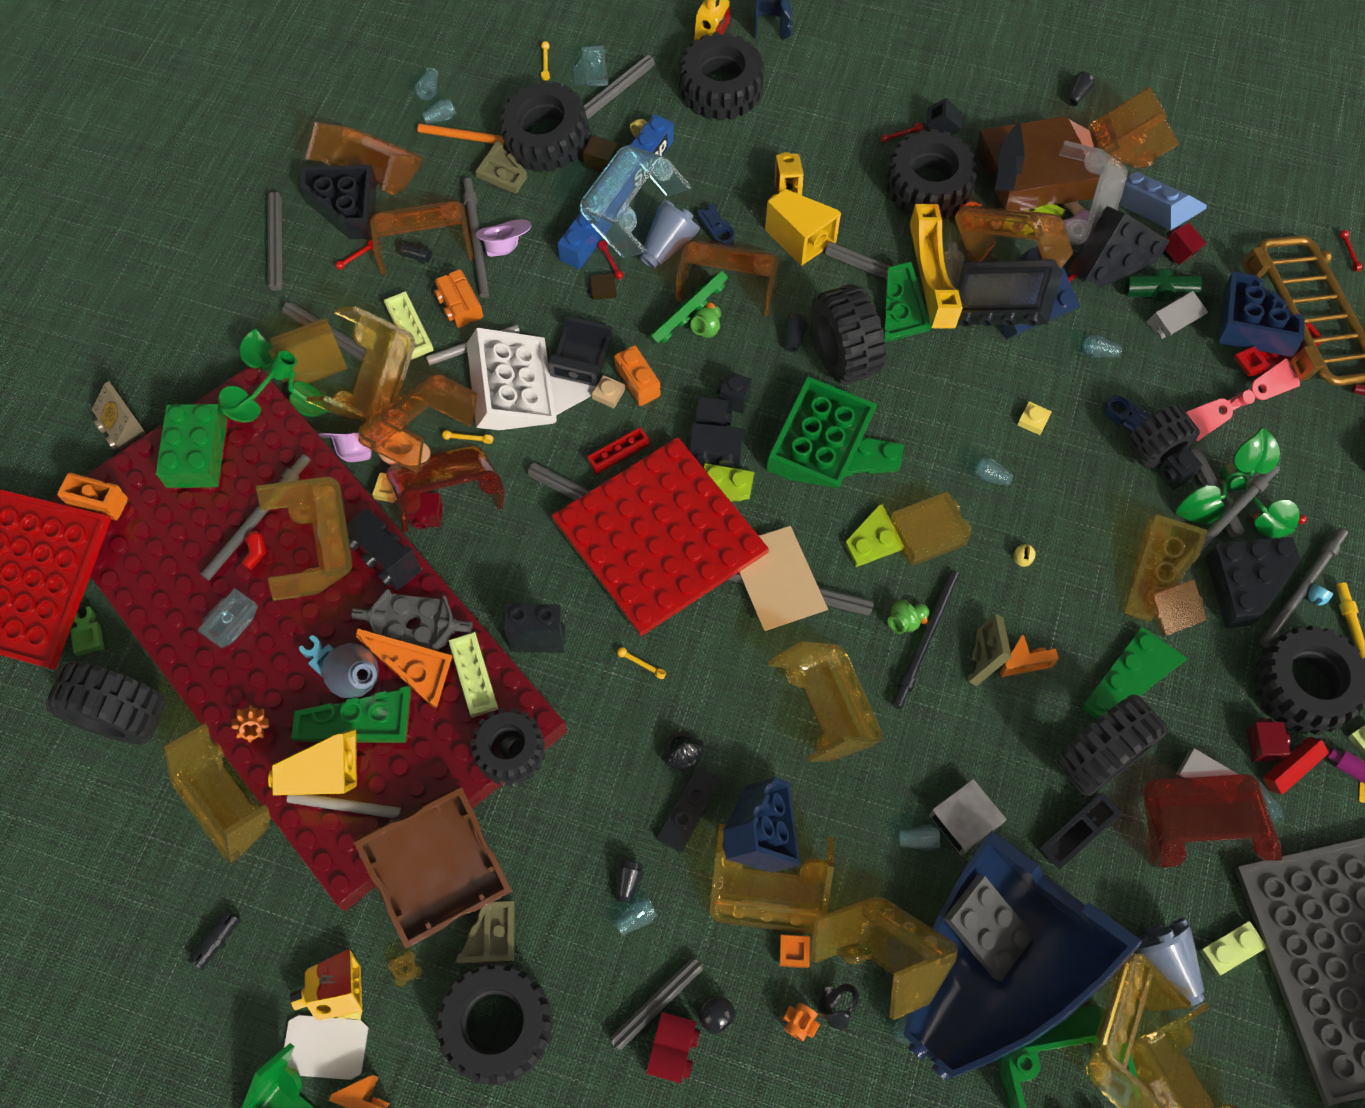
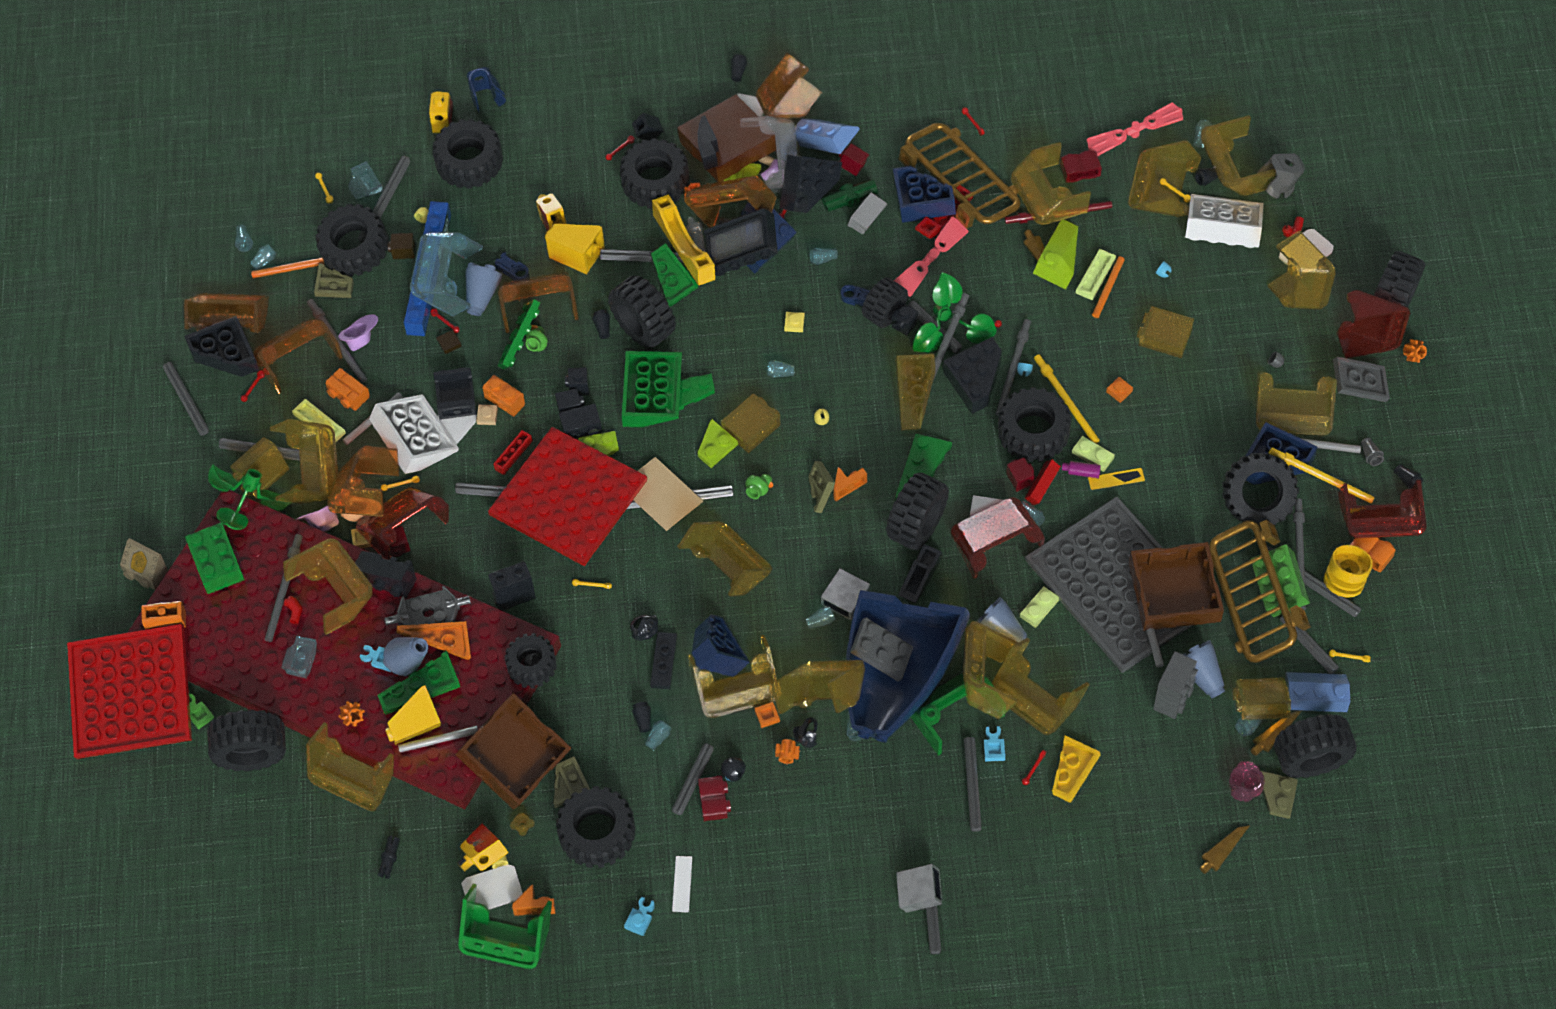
camera: 20 degrees left, 5 degrees down
(420, 253) = (297, 368): black pin -> none
(473, 674) = (485, 628): yellowish green plate -> none
(907, 682) = (774, 526): black bar -> none
(1179, 607) = (935, 411): clear orange piece -> none

